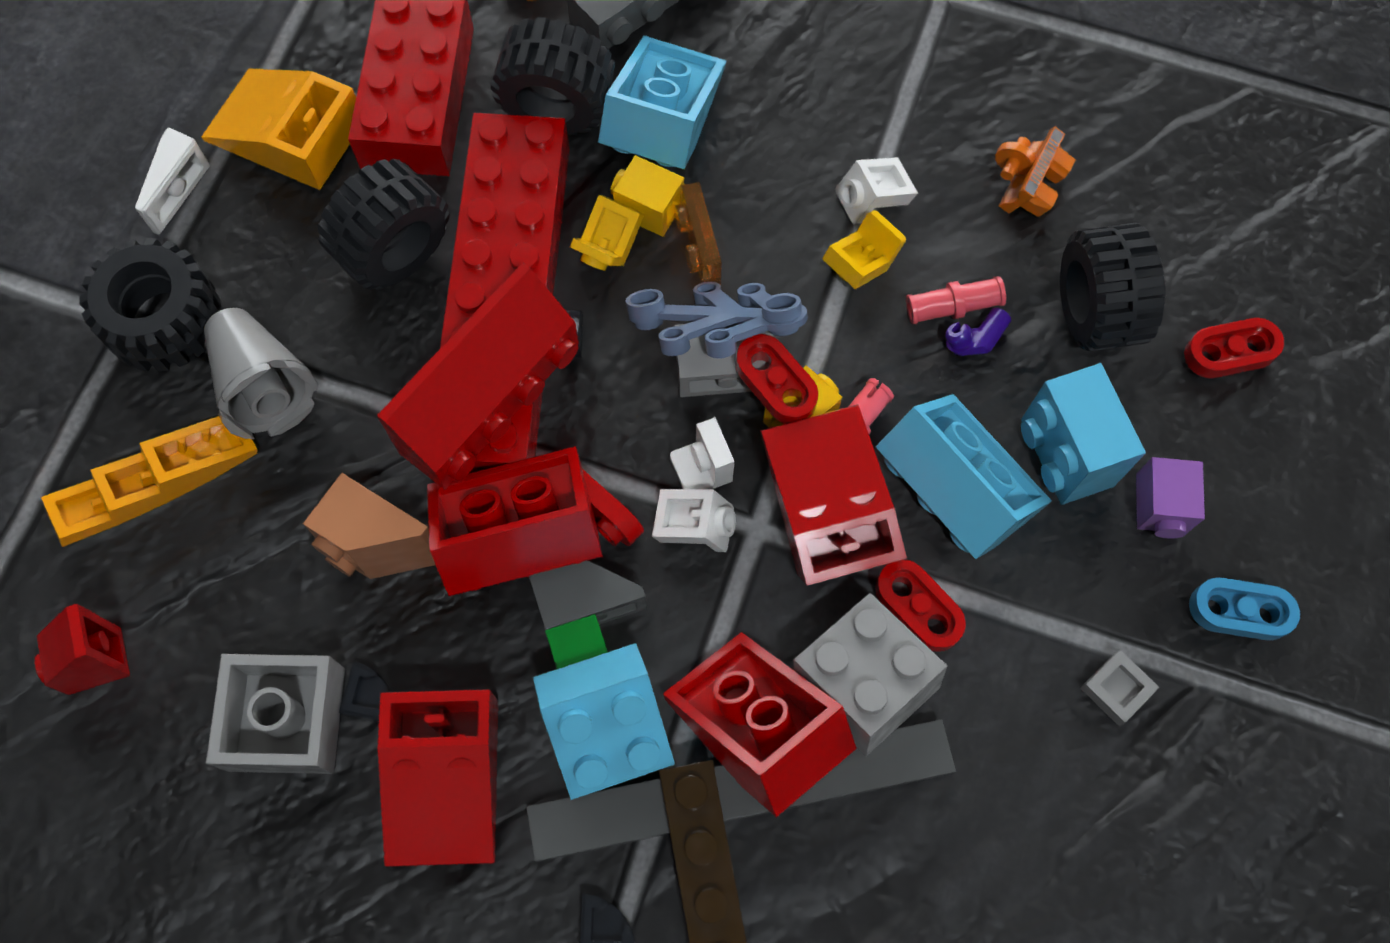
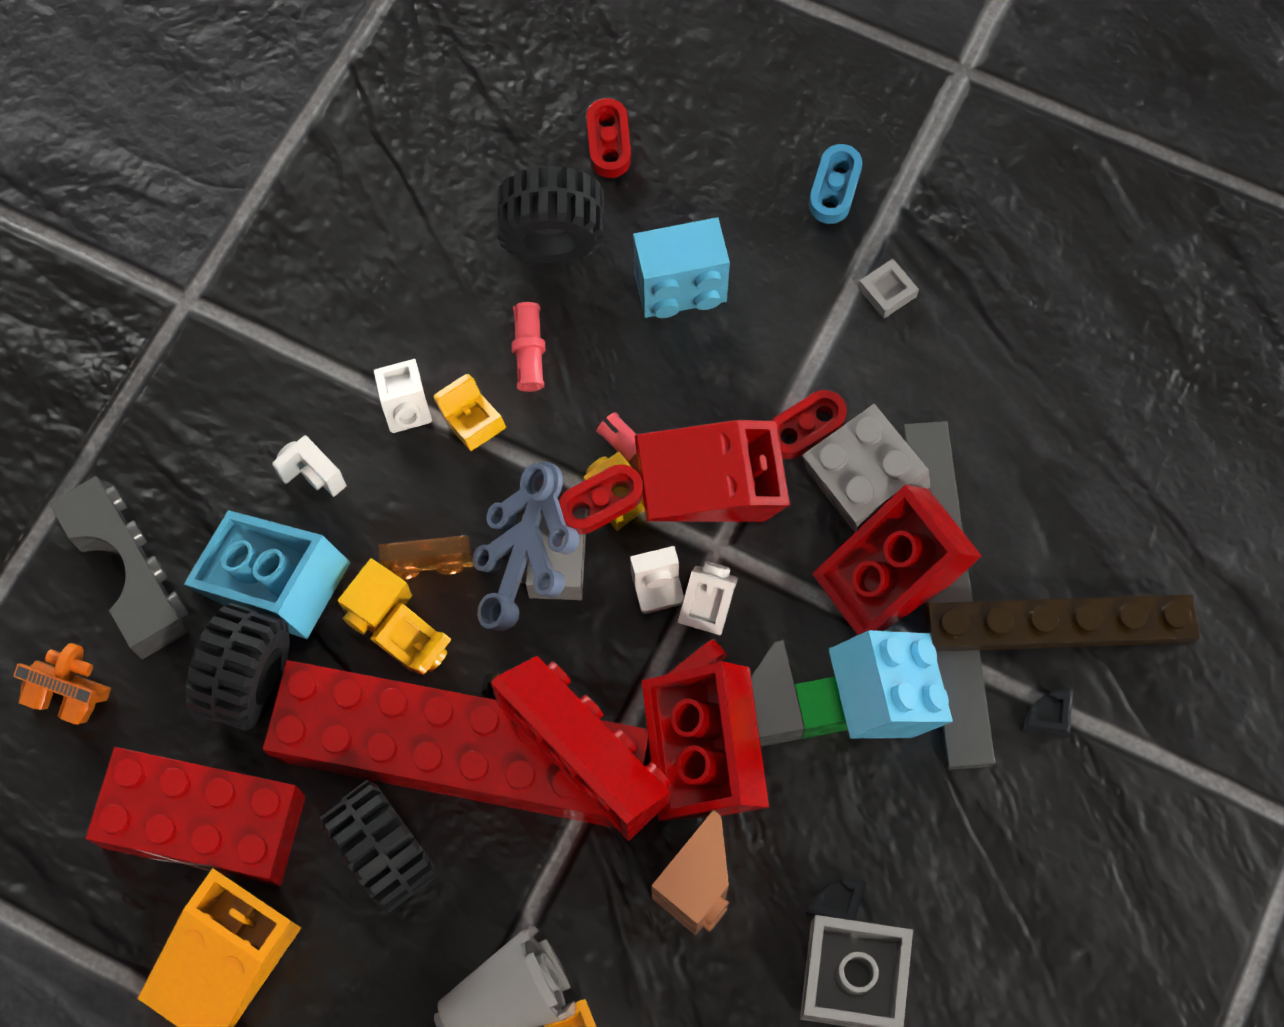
camera: 80 degrees left, 0 degrees up
(438, 777) = (920, 835): red slope -> none
(782, 118) = (311, 462): none -> white bracket
(961, 474) = (697, 369): medium azure slope -> none
(980, 340) = (568, 334): dark purple arm -> none
(1027, 165) = (409, 260): orange hips -> none
(1170, 496) = (739, 213): medium lavender brick -> none

